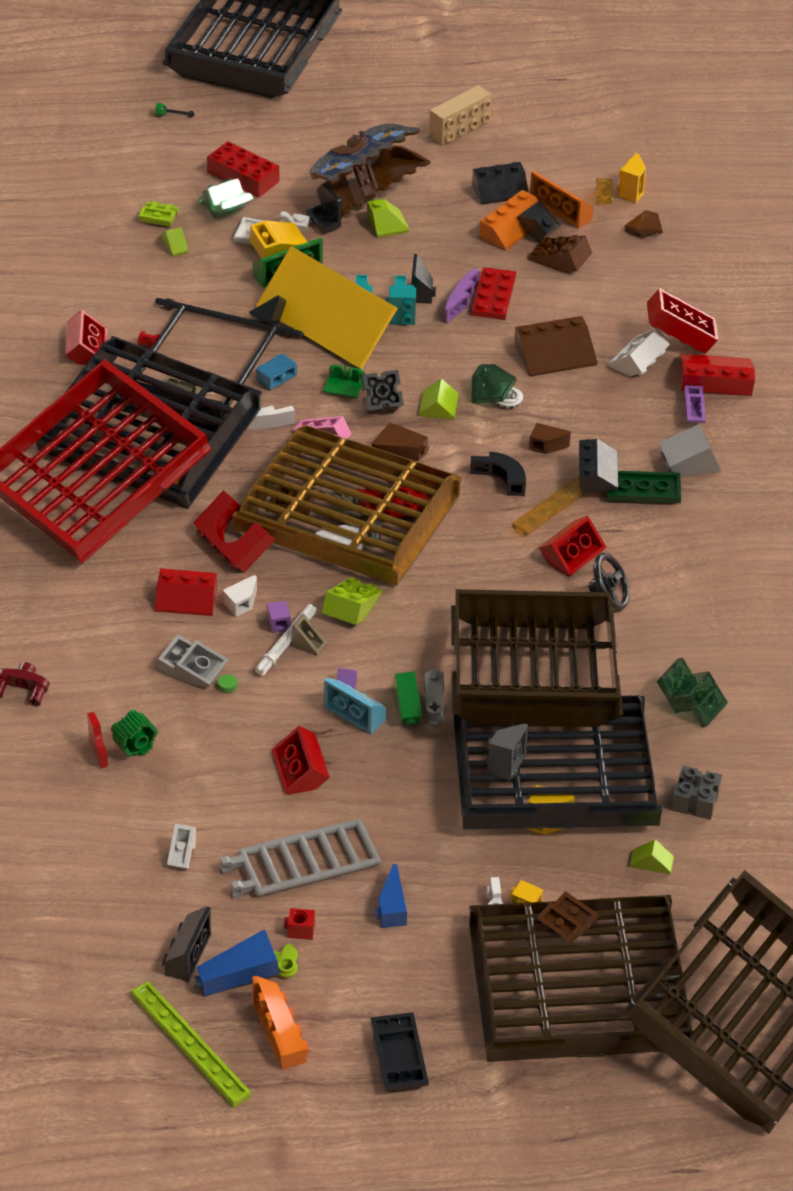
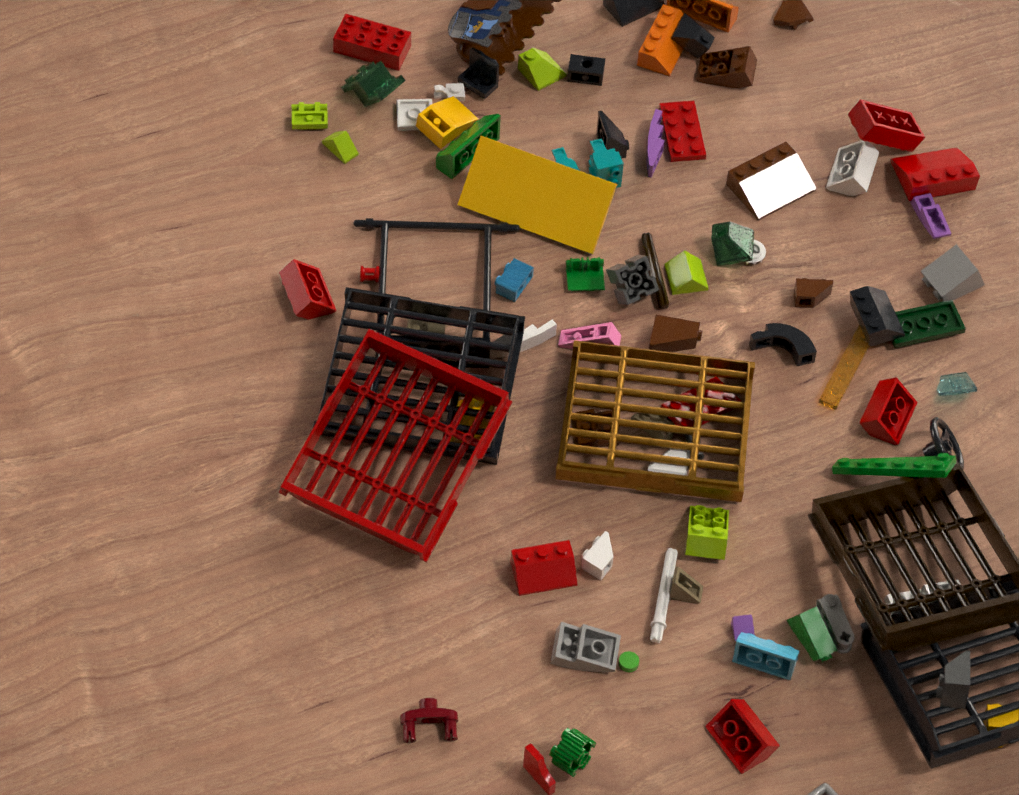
camera: 20 degrees left, 10 degrees up
(241, 552) = (536, 479): red arch -> none
(271, 310) = (479, 210): black slope -> none
(278, 616) = (646, 570): medium lavender brick -> none
(411, 393) = (655, 271): none -> dark brown axle
(427, 228) = (586, 70): none -> black brick
(552, 583) = (922, 466): none -> green wing
(649, 541) = (956, 384): none -> clear light blue slope

